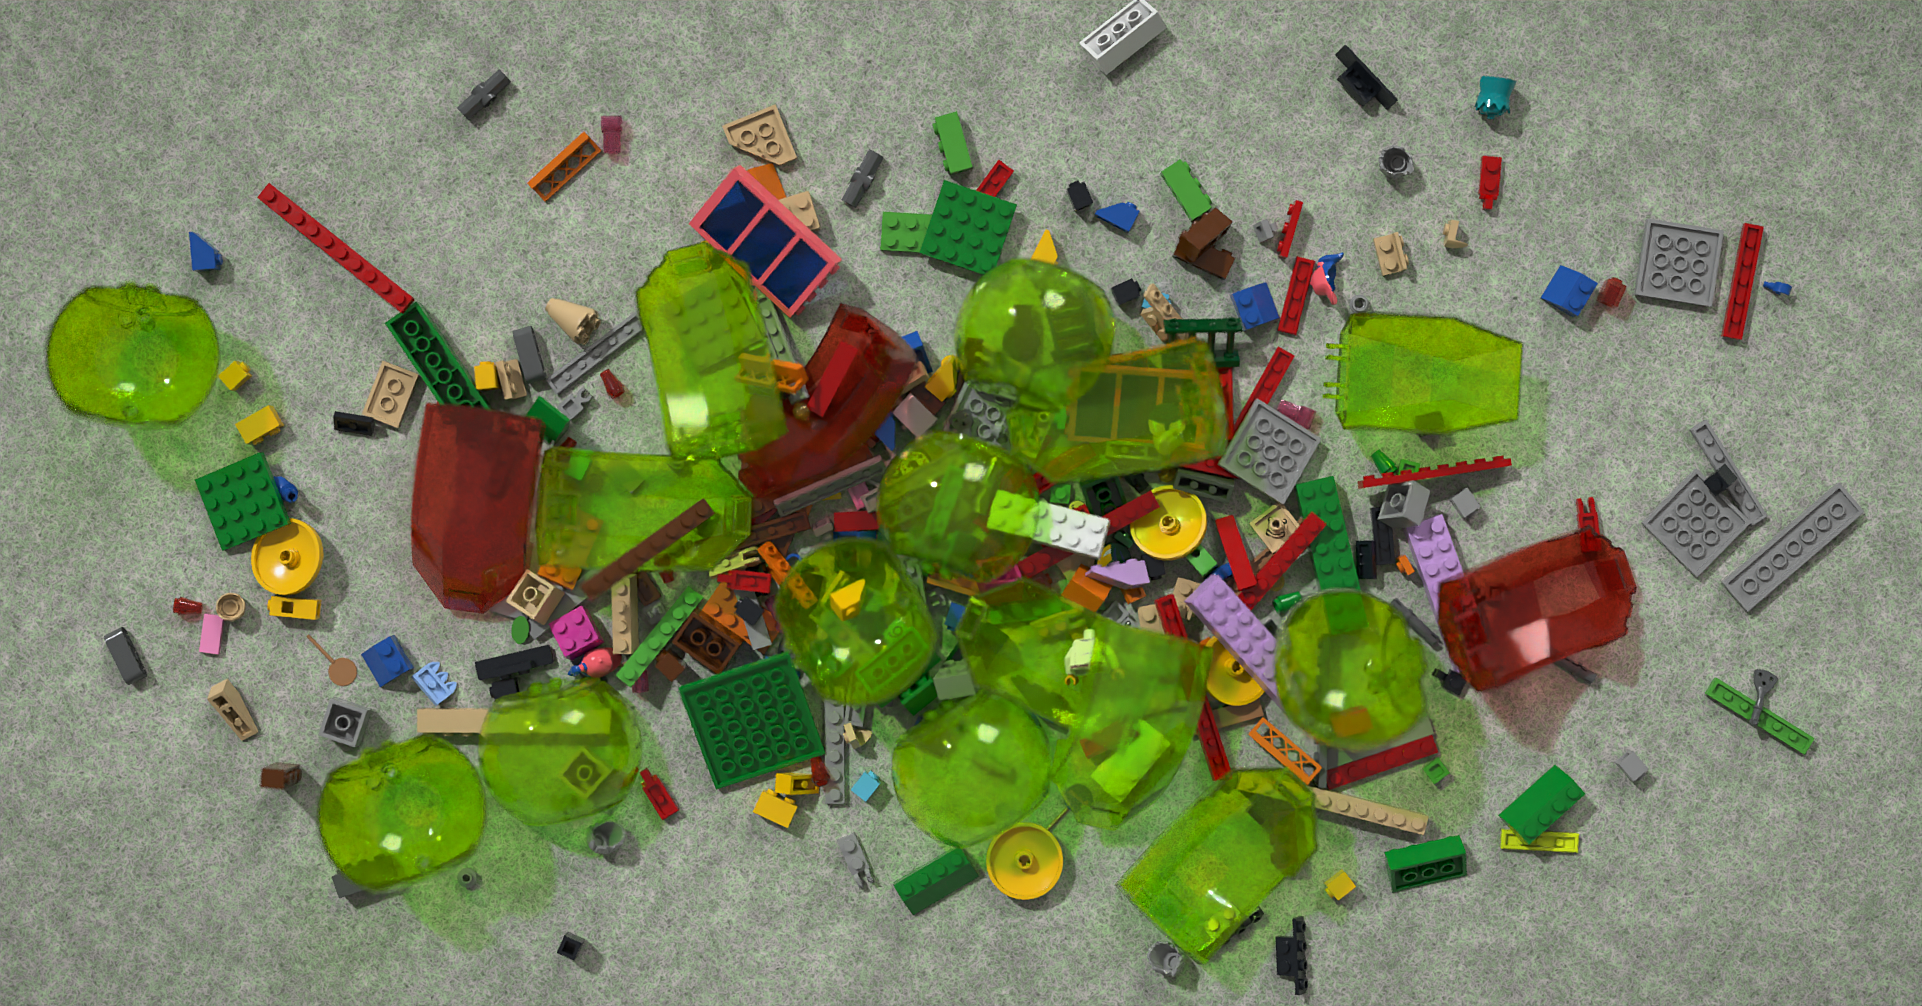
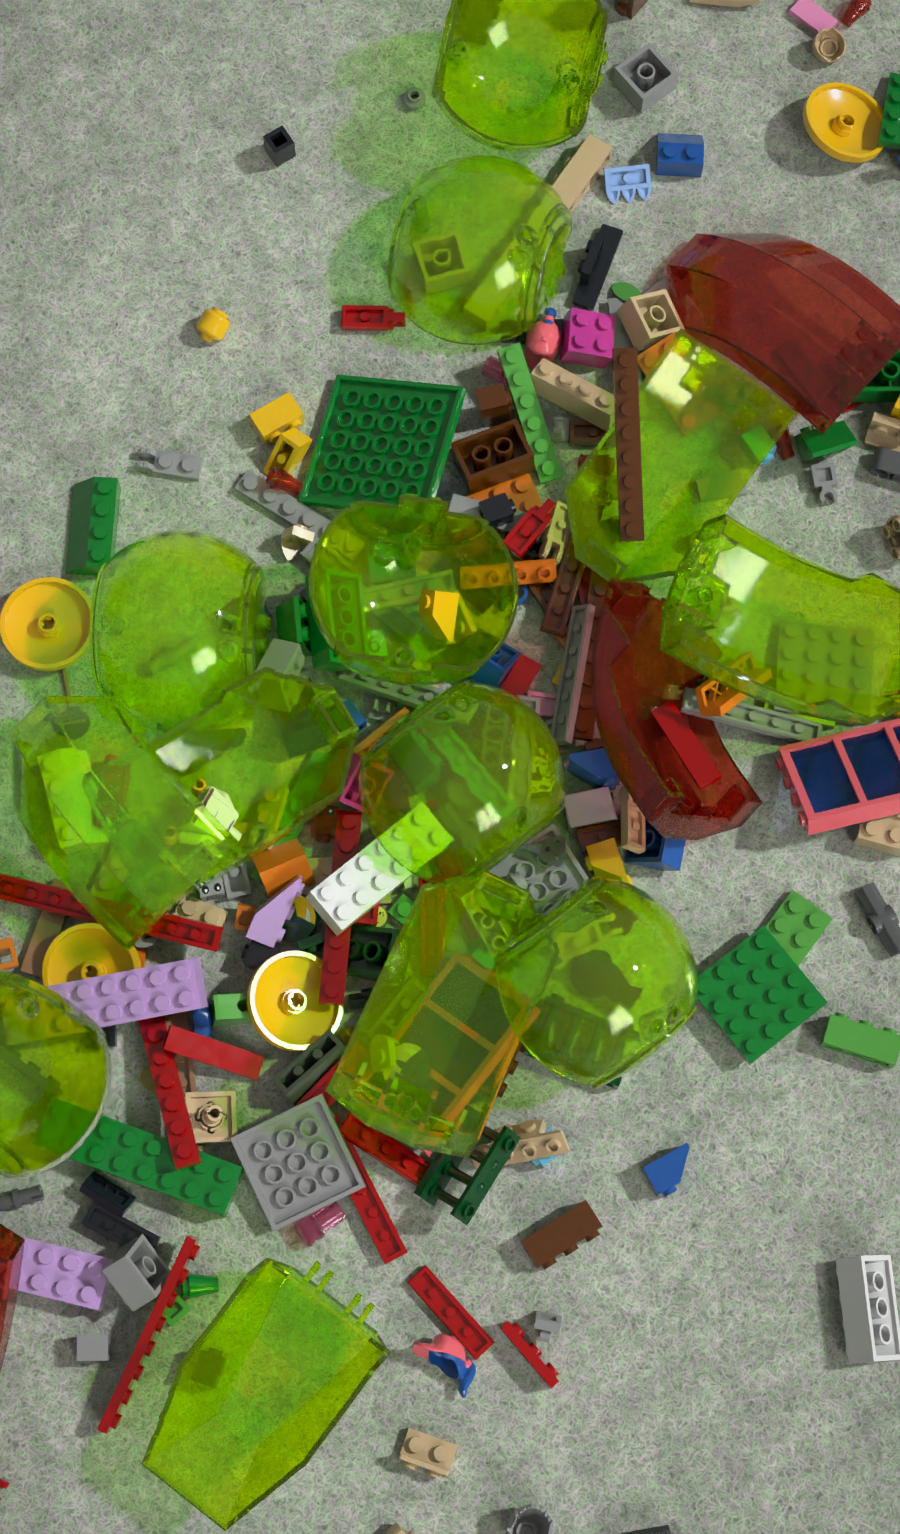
camera: 125 degrees right, 15 degrees down
(294, 607) = (789, 102): yellow brick -> none
(342, 670) = (698, 109): medium nougat piece -> none
(504, 687) = (577, 241): black brick -> none
(595, 354) = (862, 522): light grey tile -> none
(605, 837) = (363, 241): light grey hair -> none
(612, 385) = (821, 530): clear red cone -> none
(736, 899) = (213, 325): none -> yellow head
(823, 528) = (532, 643): light grey tile -> none
(866, 785) = (237, 519): medium azure brick -> none
(995, 179) = (792, 1061): red plate -> none
(1045, 249) = (676, 1061): yellow slope -> none
(1079, 195) = (717, 1140): black brick -> none
(1126, 291) = (577, 1122): black brick -> none
(1182, 590) = (213, 971): tan bracket -> none
(1186, 189) = (648, 1265): bright green brick -> none
(1203, 234) = (587, 1247): reddish brown brick -> none
(1254, 306) = (469, 1256): blue slope -> none
(1286, 602) = (122, 1076): green cone -> none
(1365, 303) = (386, 1378): light grey plate -> none
(1404, 565) = (72, 1231): orange plate -> none

